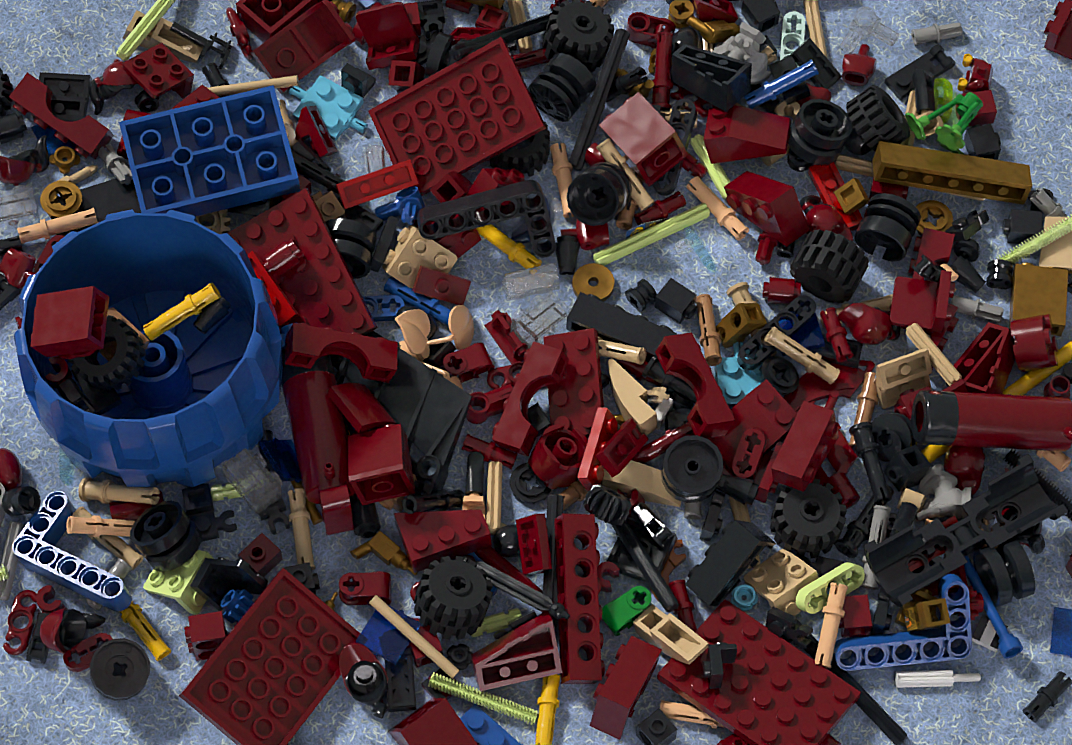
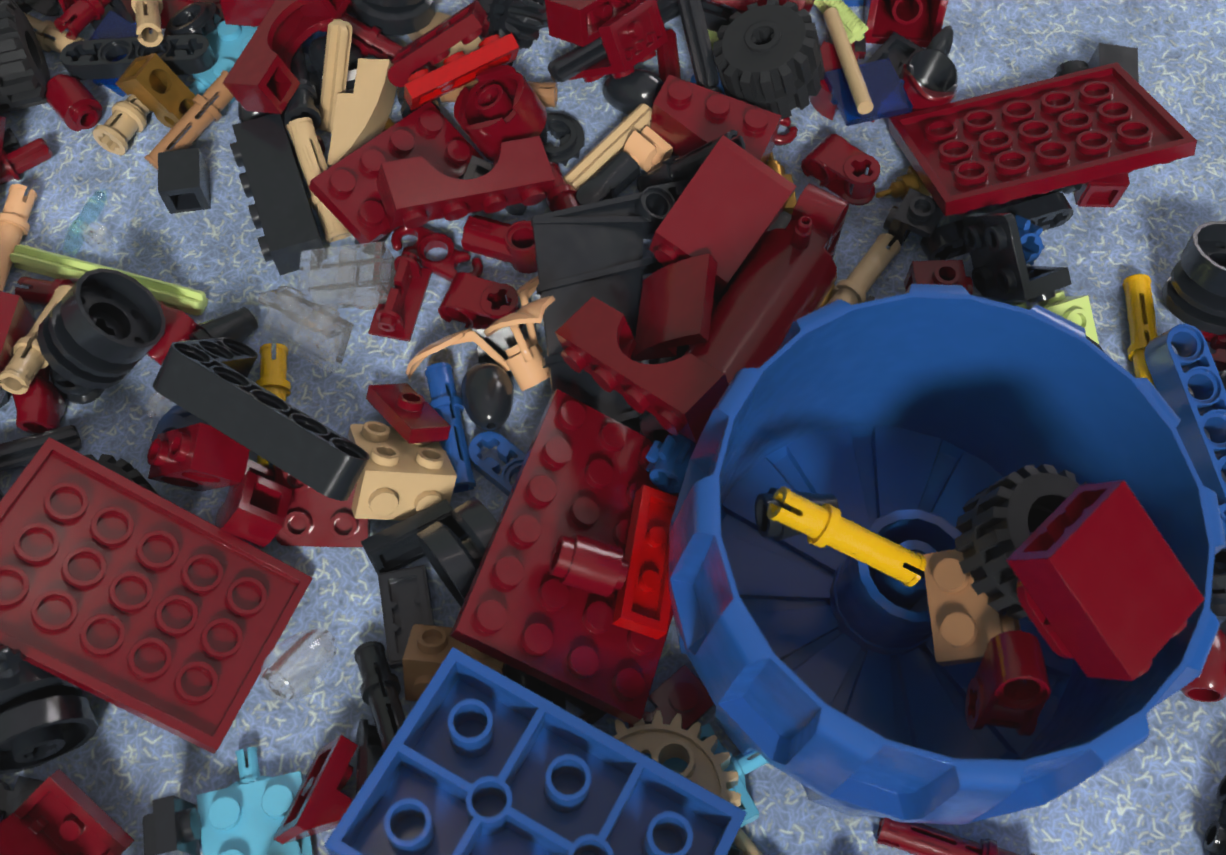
camera: 135 degrees left, 0 degrees up
(205, 634) = (1082, 233): dark red brick -> none
(377, 184) = (333, 617): red plate -> none
(405, 74) = (105, 762): dark red brick -> none
(407, 205) = (332, 545): blue axle -> none
(562, 170) = (116, 419): light nougat pin -> none
(597, 273) = (229, 268): pearl gold piece -> none
(641, 295) = (208, 217): black wheel -> none

